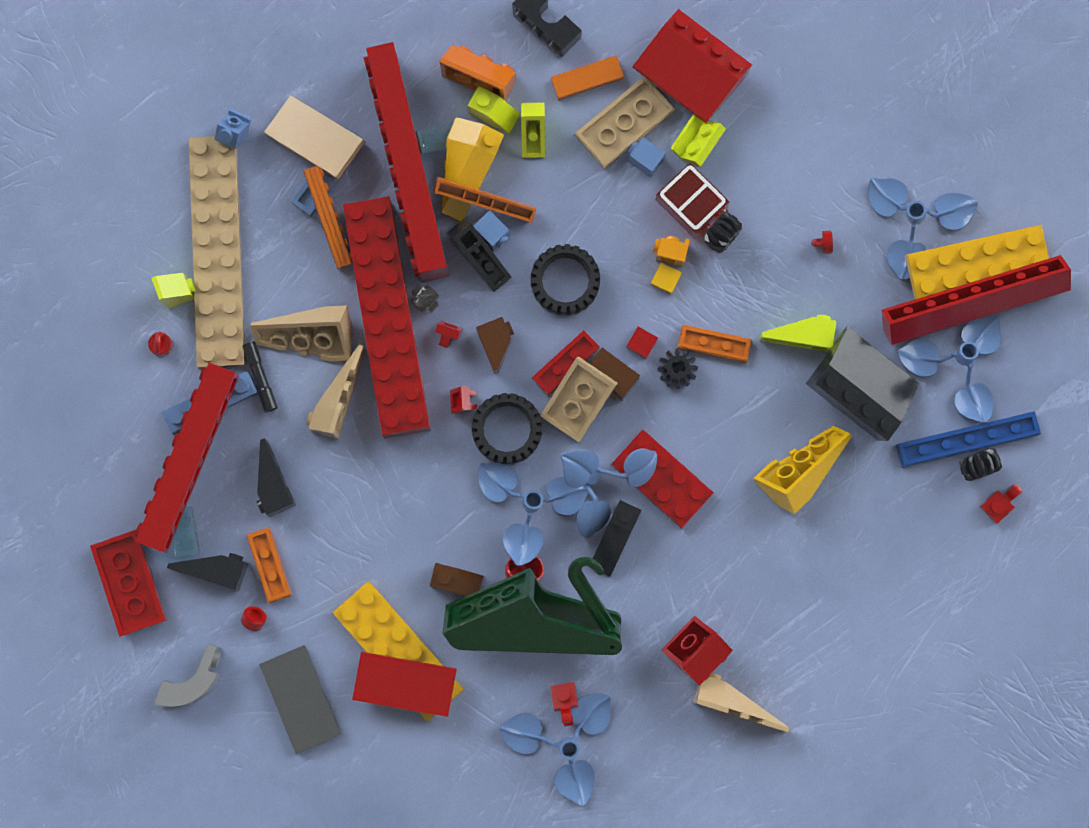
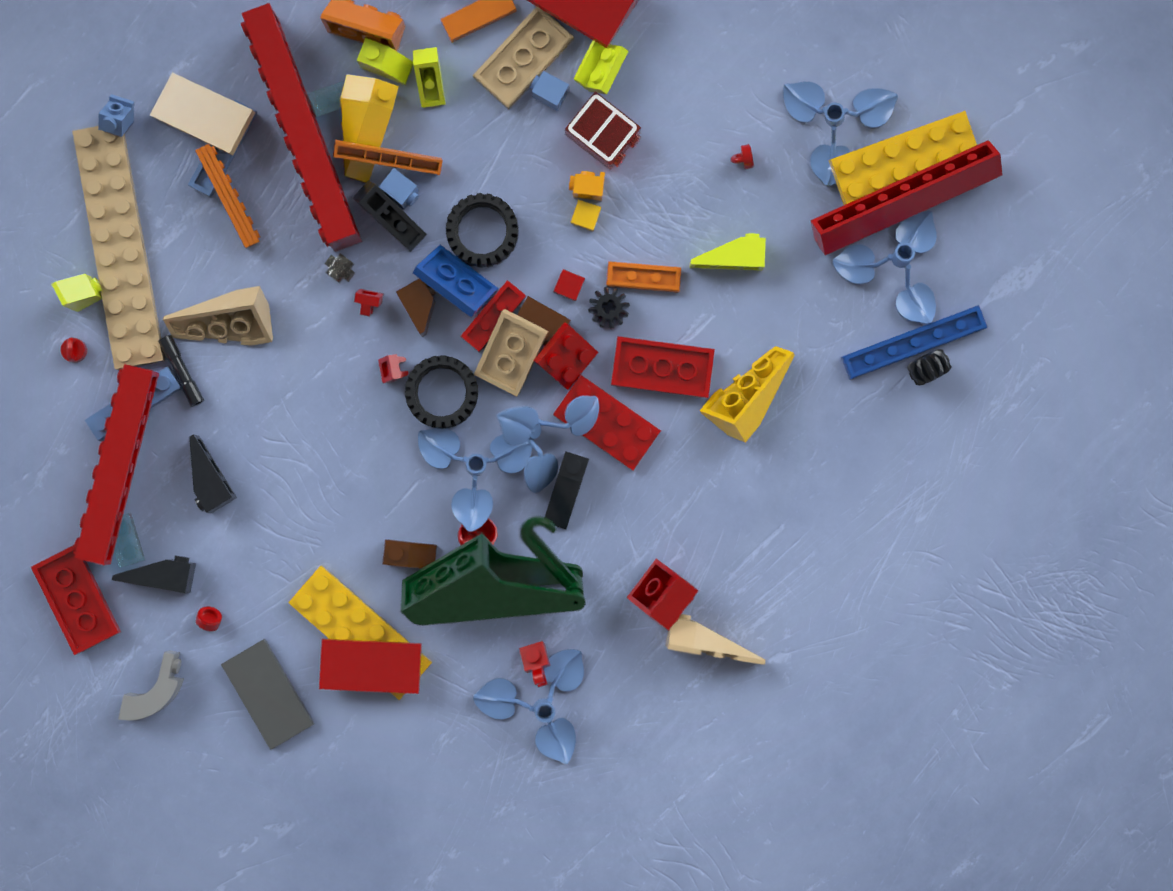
camera: 10 degrees left, 5 degrees up
(269, 565) = (217, 562): orange tile -> none
(333, 405) = (260, 391): tan wedge -> none
(386, 317) = (302, 292): red brick -> none
(534, 324) = (455, 280): none -> blue plate
(631, 409) = (566, 356): none -> red plate
(722, 432) = (662, 367): none -> red plate
(723, 232) = (638, 160): black gear -> none
(864, 385) = (801, 300): black slope -> none
(999, 504) = (953, 405): red plate -> none

